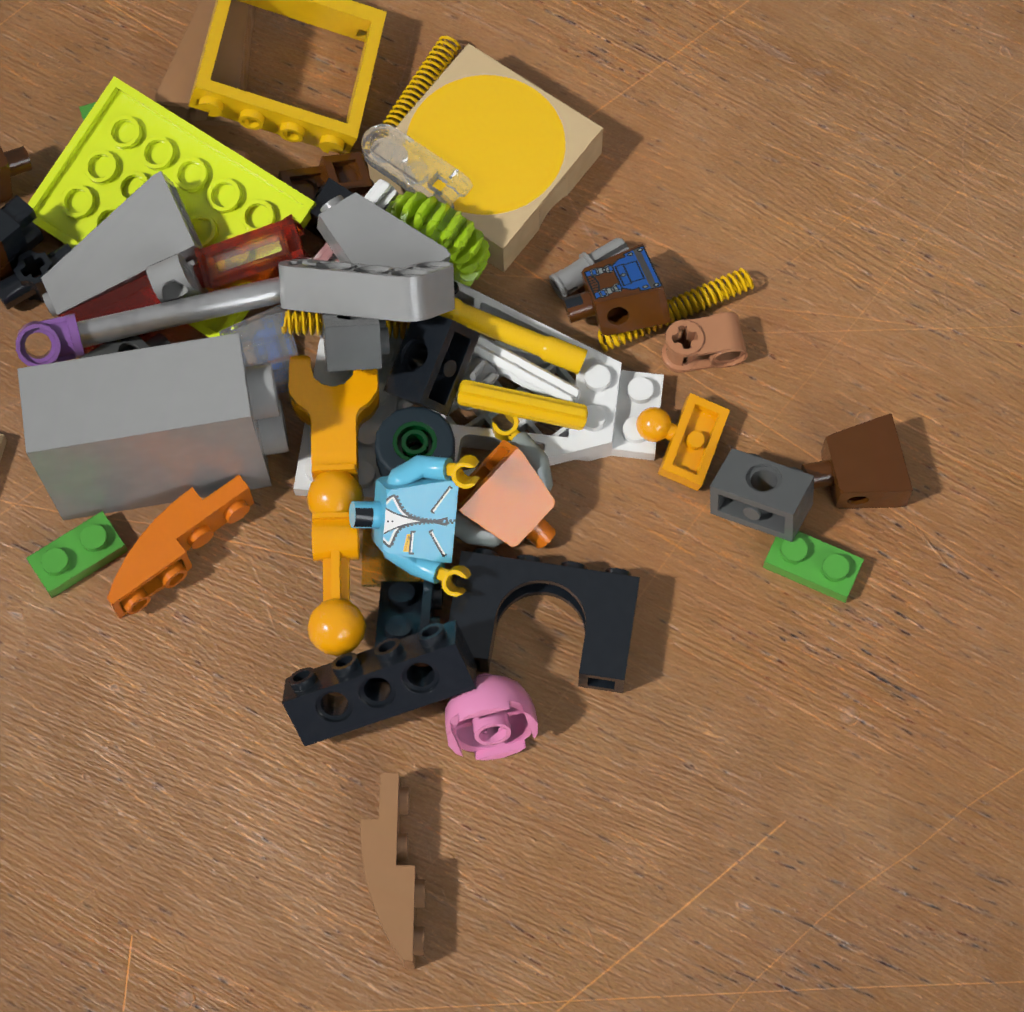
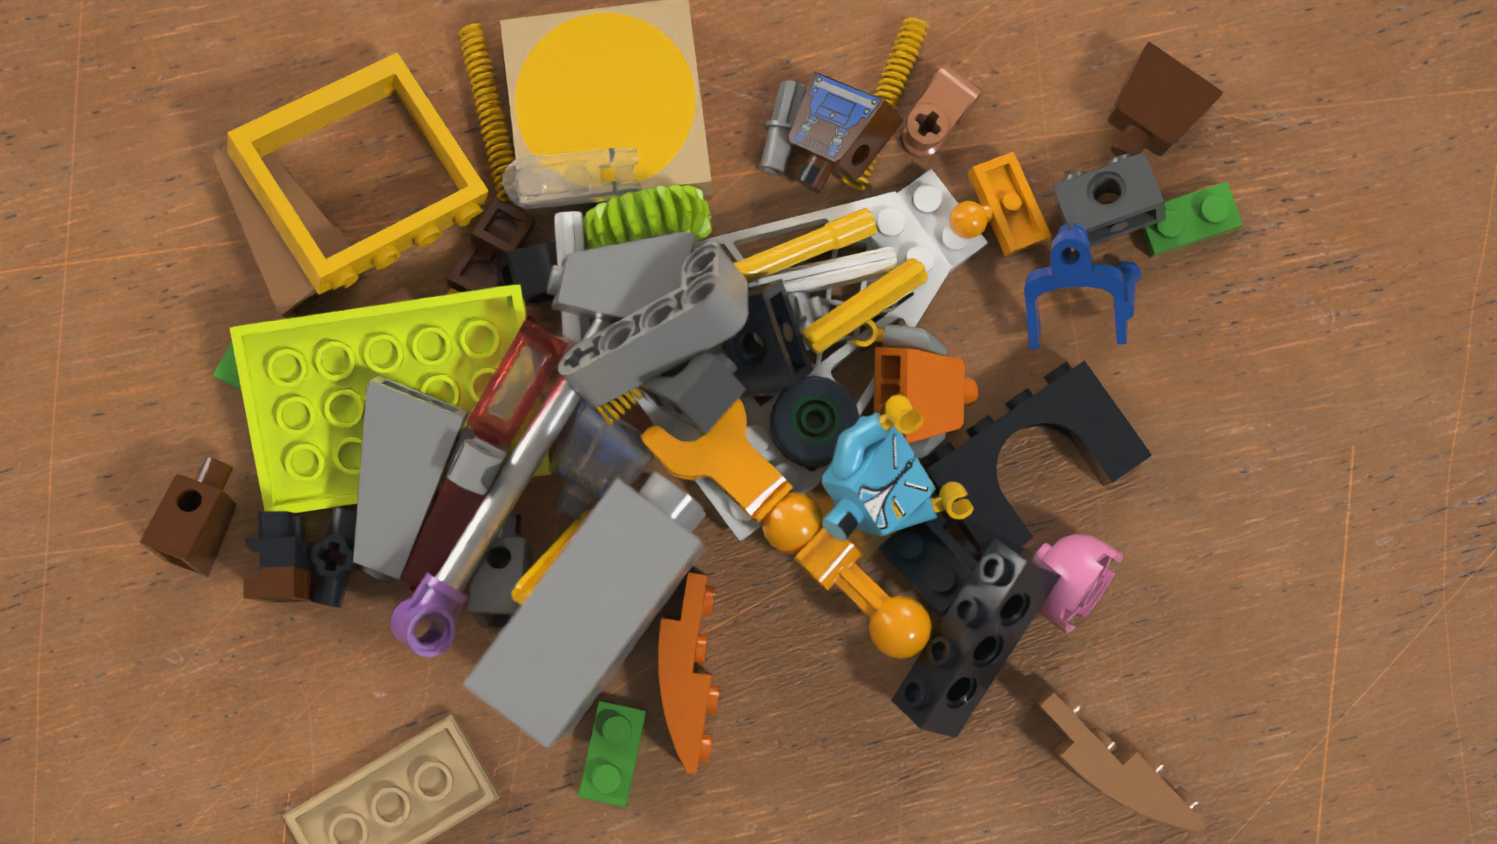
camera: 45 degrees left, 15 degrees up
(688, 502) = (1077, 270): none -> blue piece

